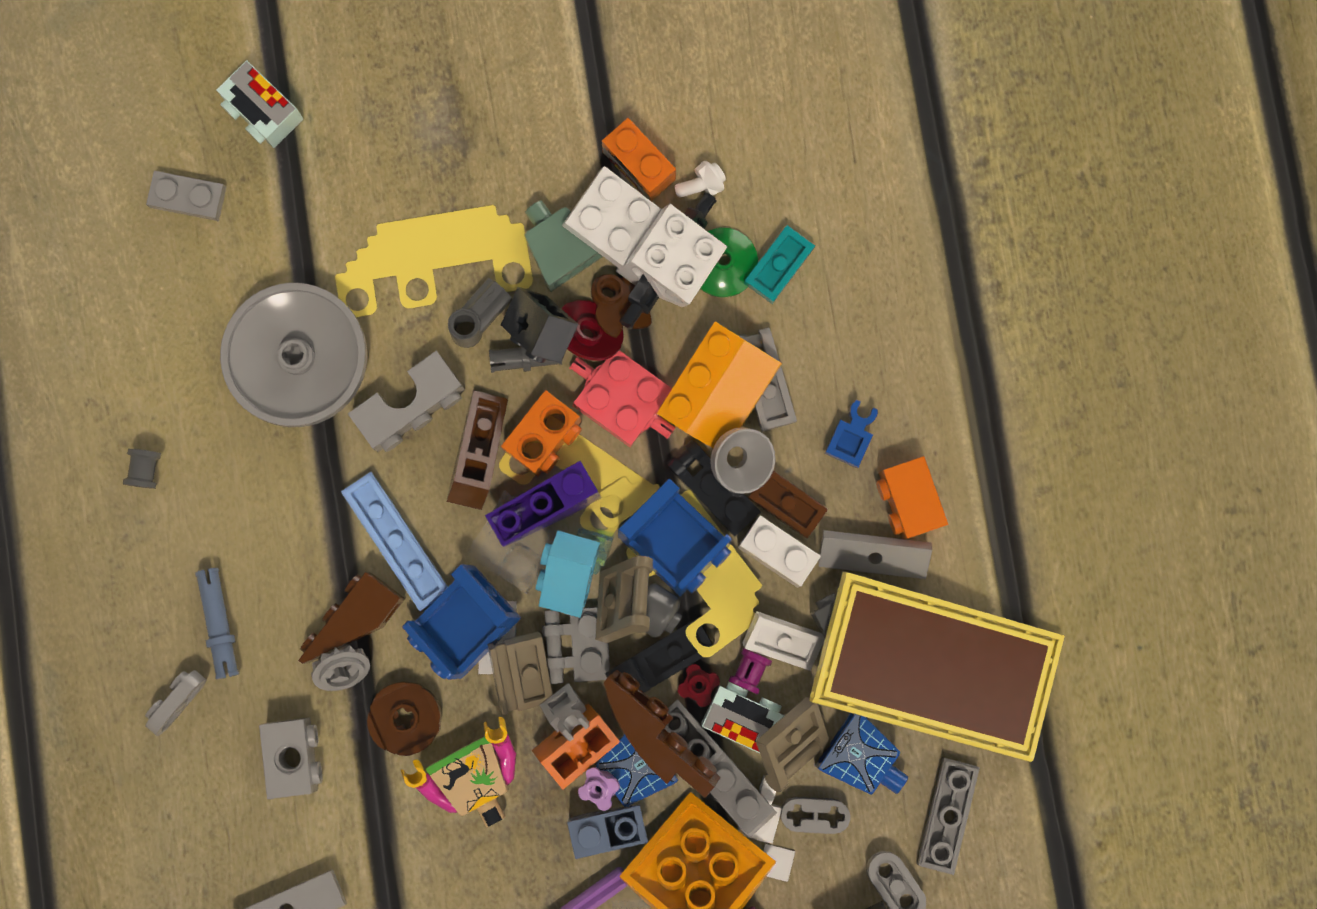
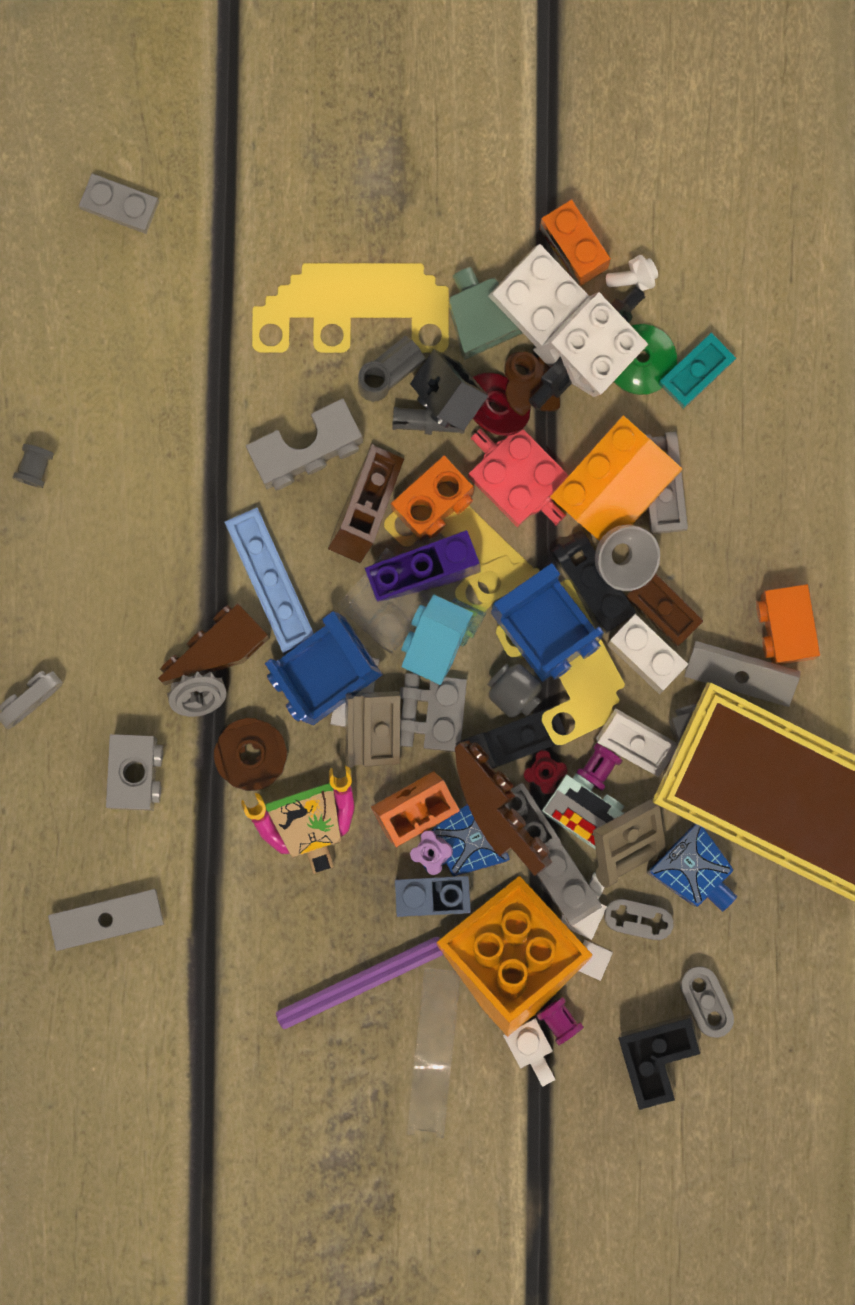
camera: 15 degrees right, 0 degrees up
(217, 623) = (82, 630): sand blue pin -> none
(259, 104) = (206, 125): brick -> none
(293, 355) = (201, 379): light grey dish -> none
(565, 711) = (410, 772): light grey plate -> none
(615, 599) = (478, 671): dark tan plate -> none
(850, 439) = (738, 556): blue plate -> none
(944, 839) = (759, 964): light grey tile -> none

